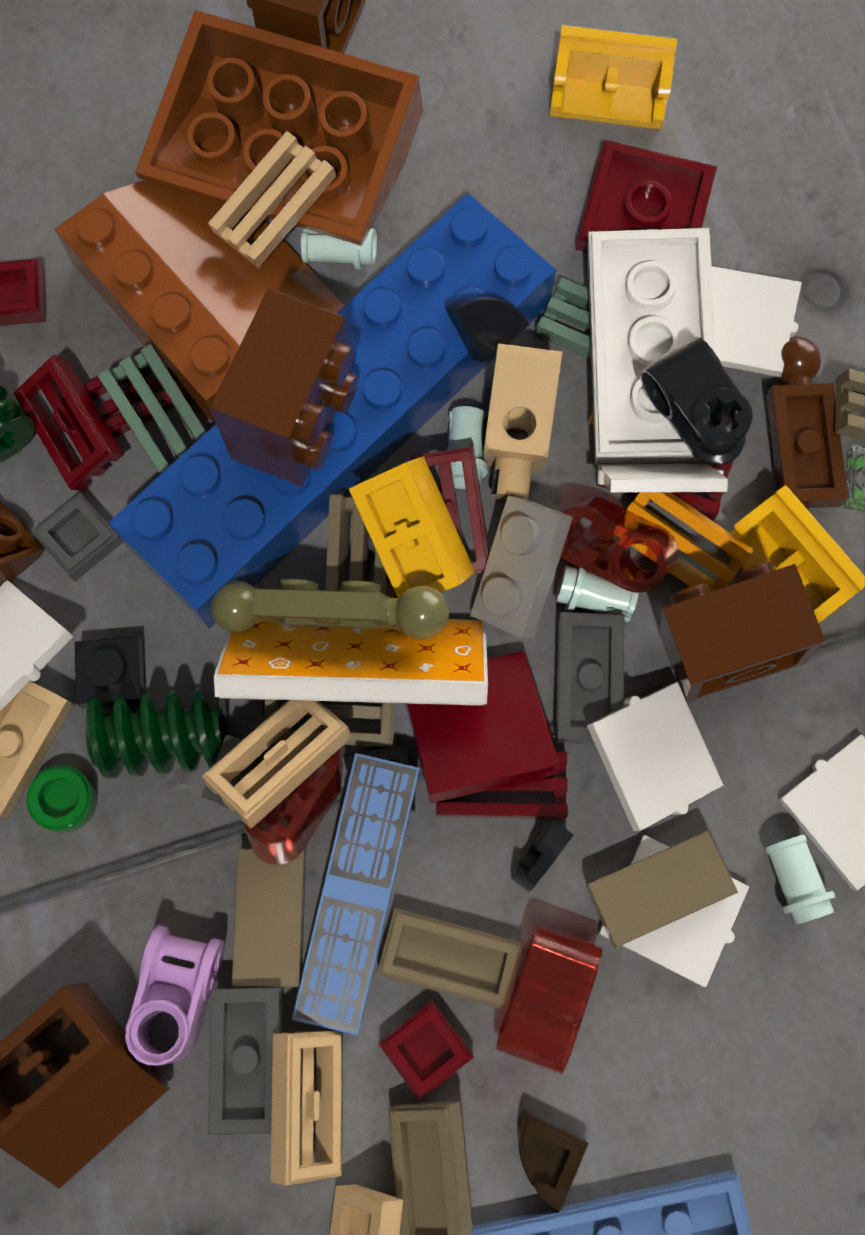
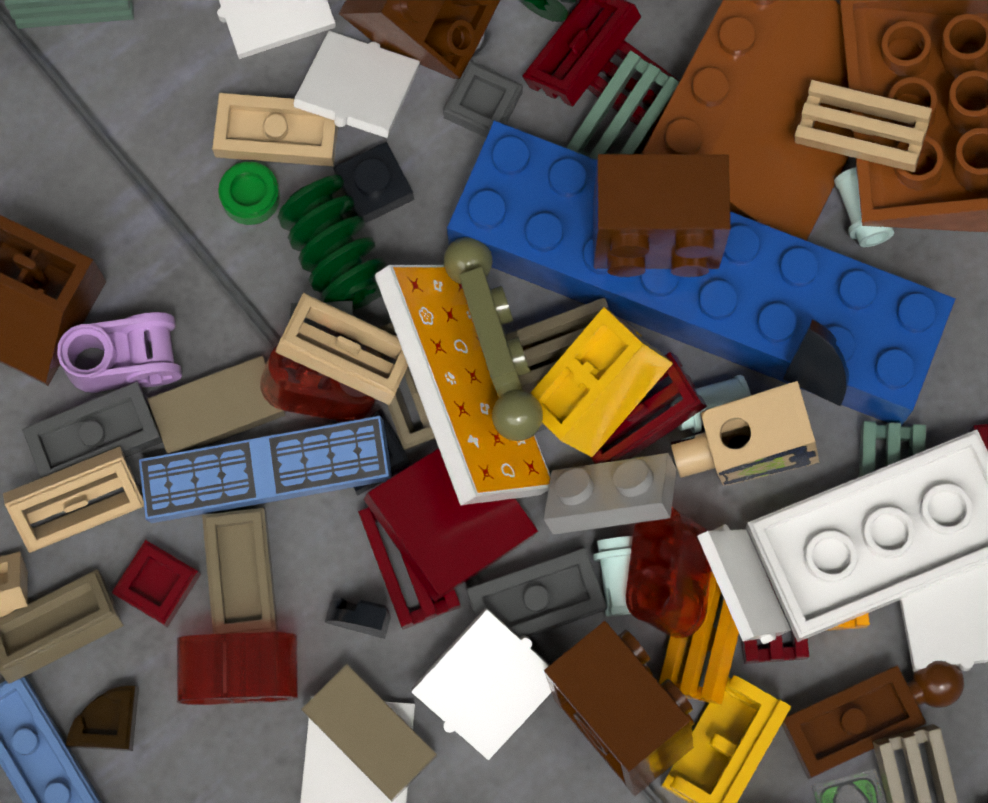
camera: 70 degrees right, 0 degrees up
(694, 392) = (837, 585): black piece -> none

